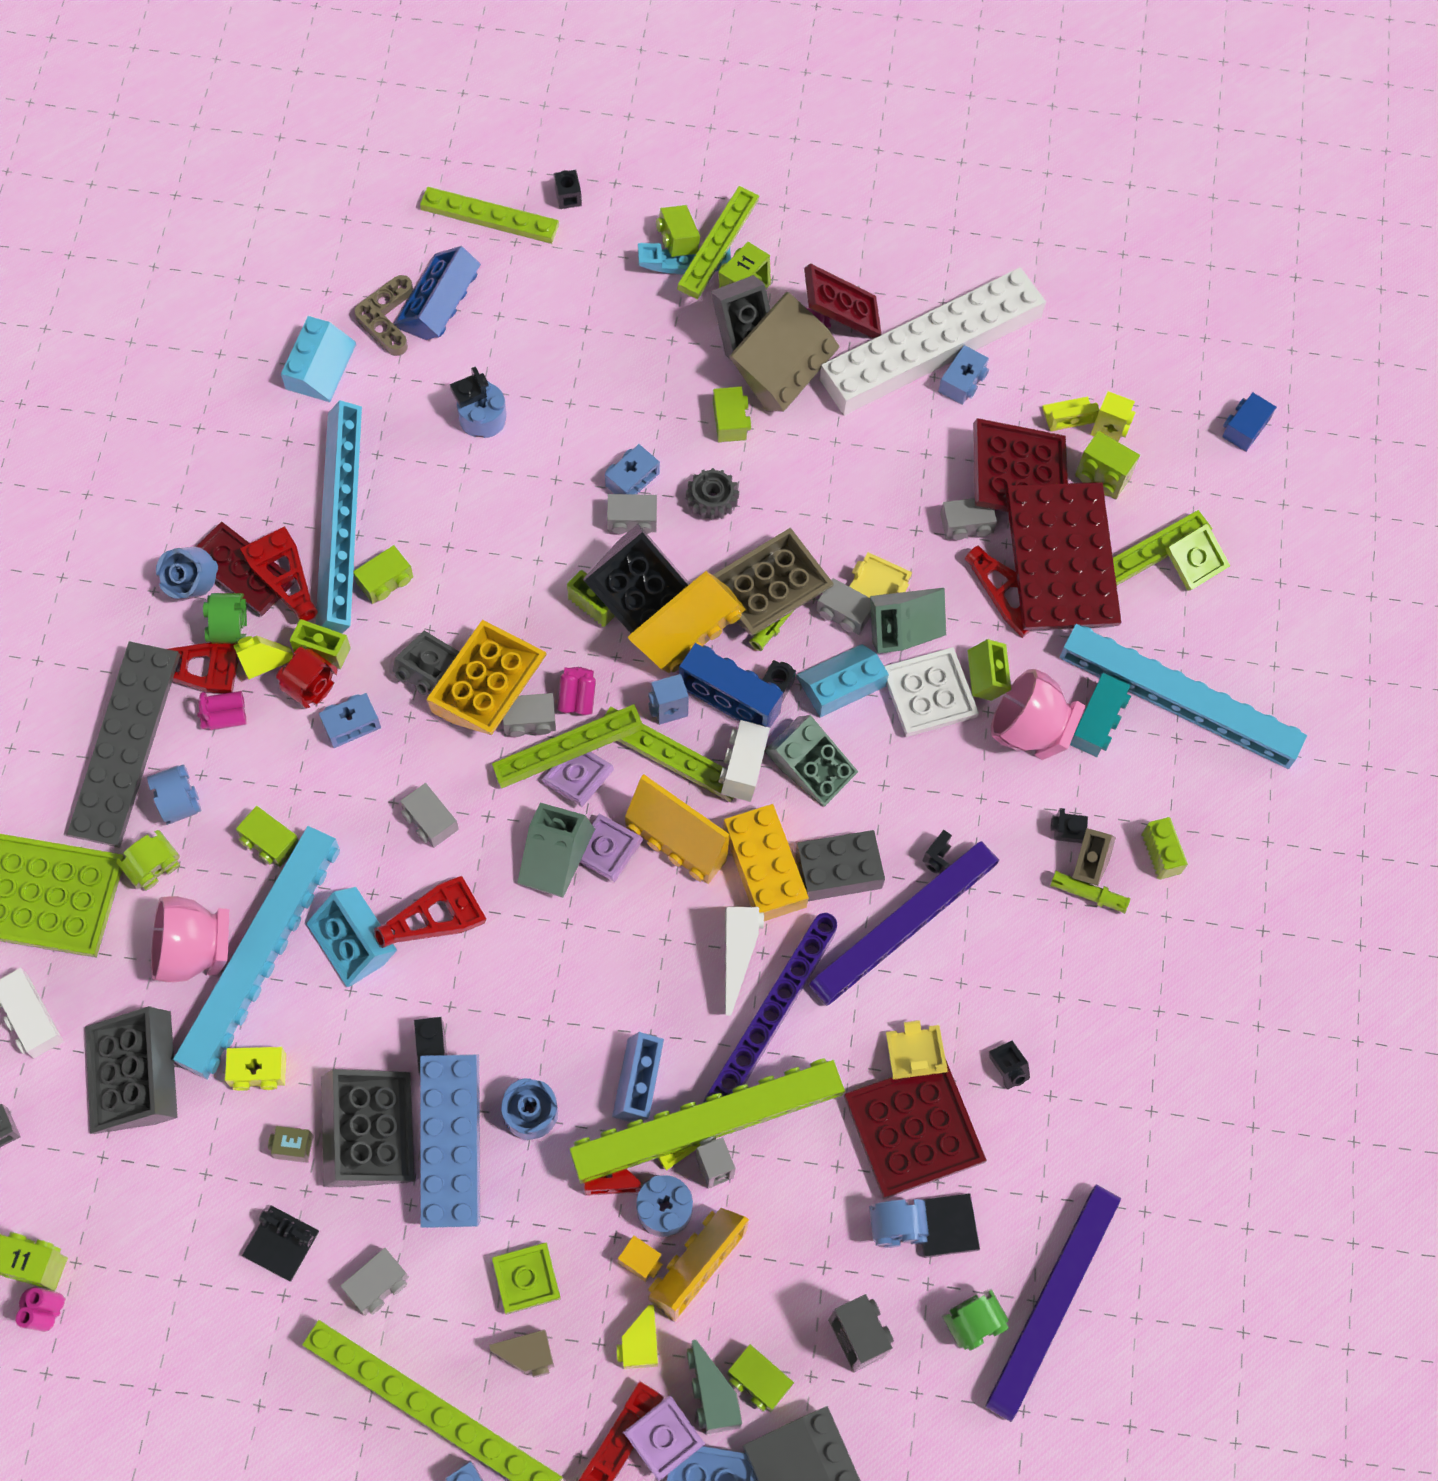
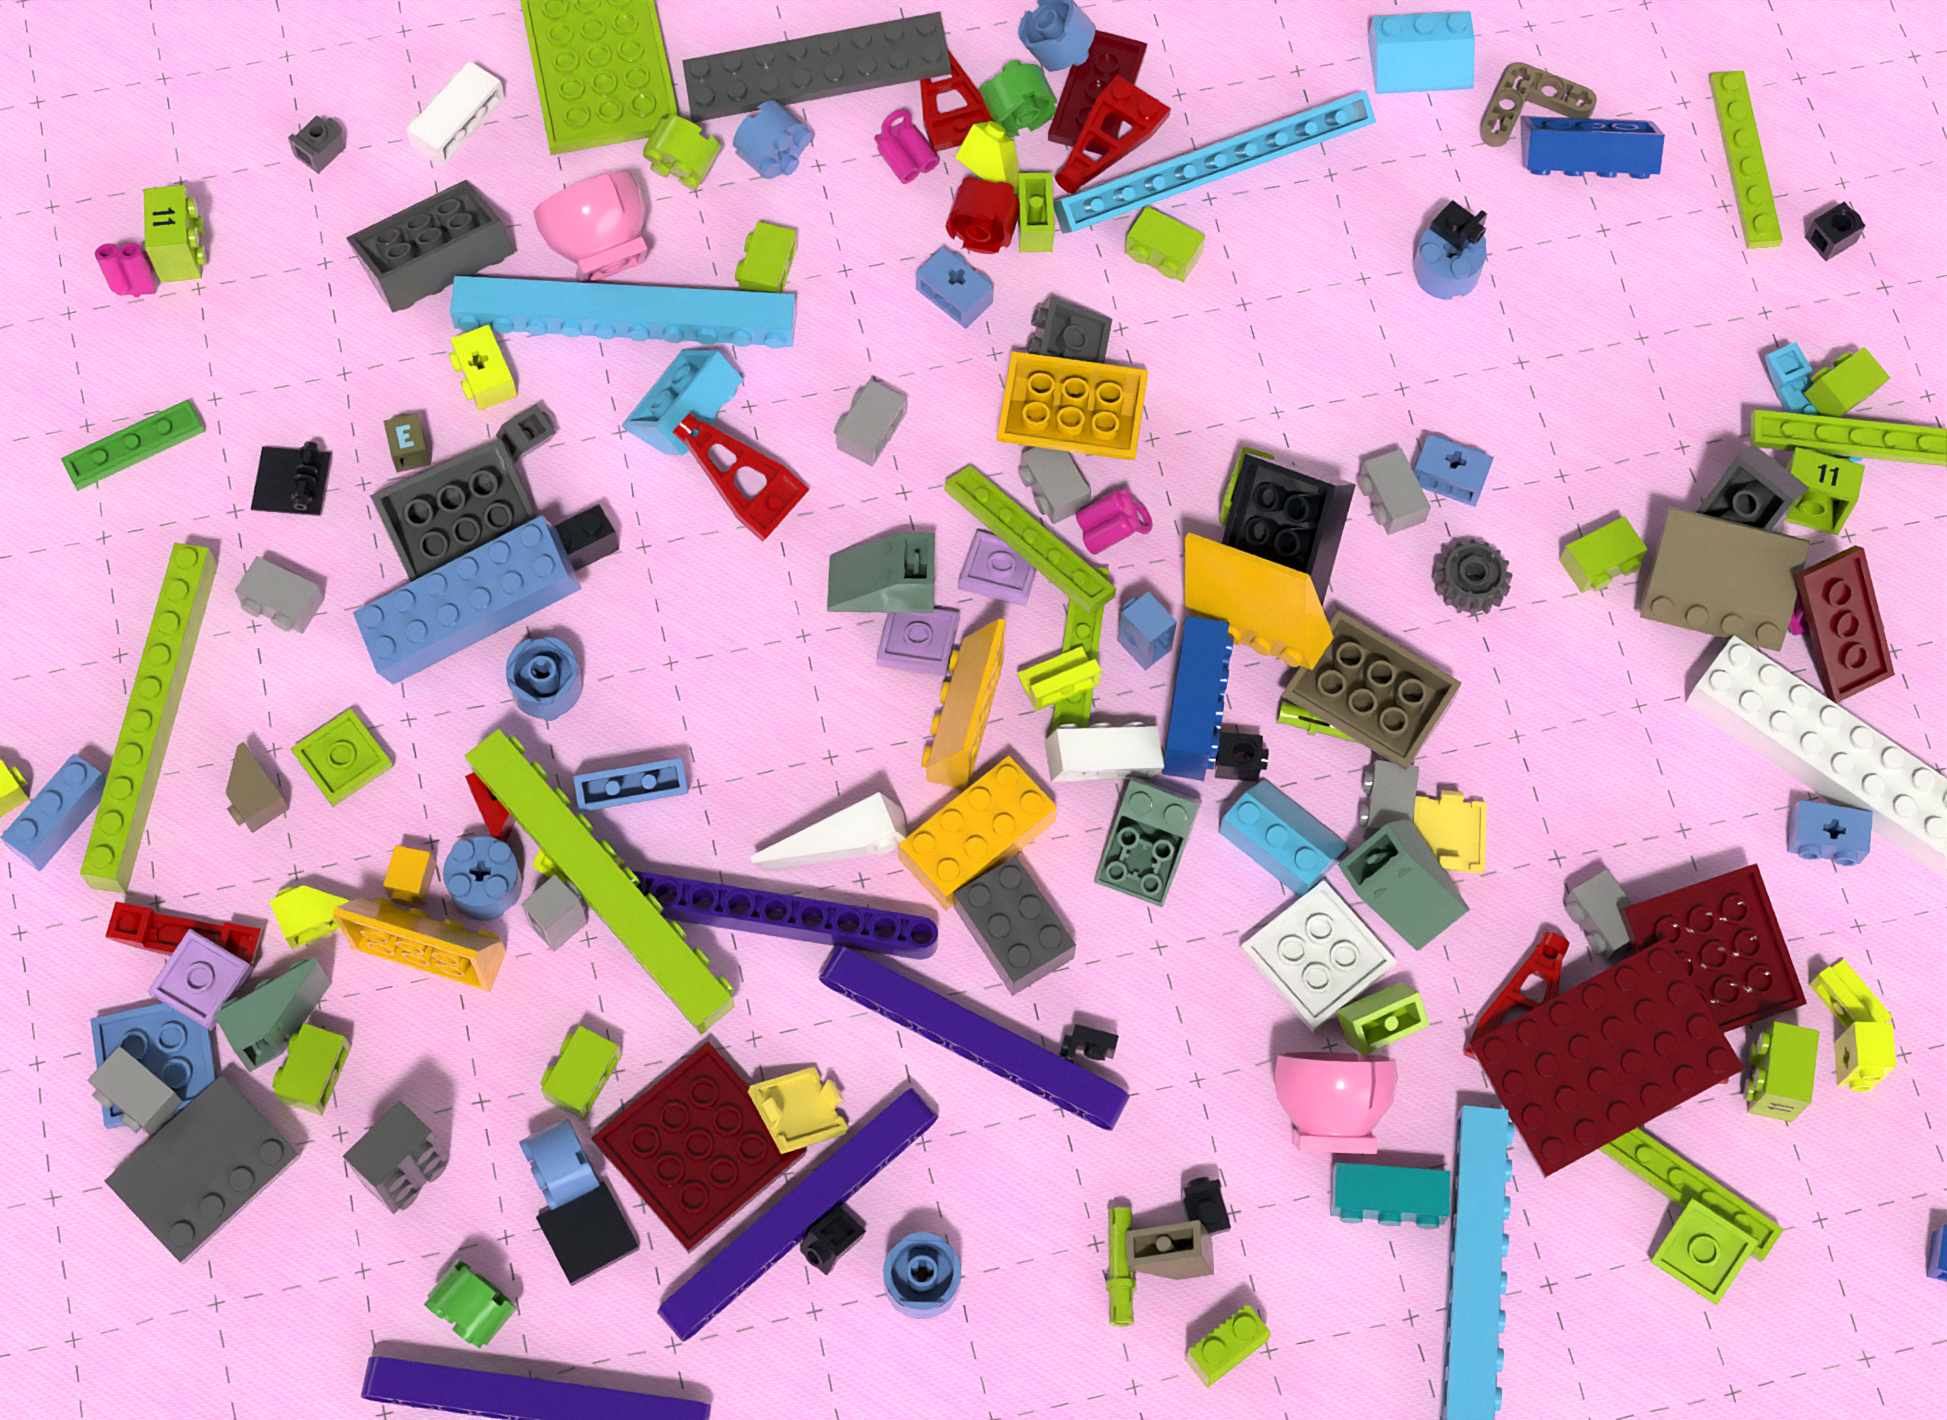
camera: 70 degrees right, 0 degrees up
(190, 1357) = (132, 444): none -> bright green tile
(325, 1053) = (531, 420): none -> dark grey brick
(678, 766) = (1059, 678): none -> neon yellow panel
(833, 1188) = (580, 1071): none -> lime brick
(986, 1081) = (796, 1214): none -> dark purple beam
(1072, 1014) = (902, 1266): none -> medium blue brick

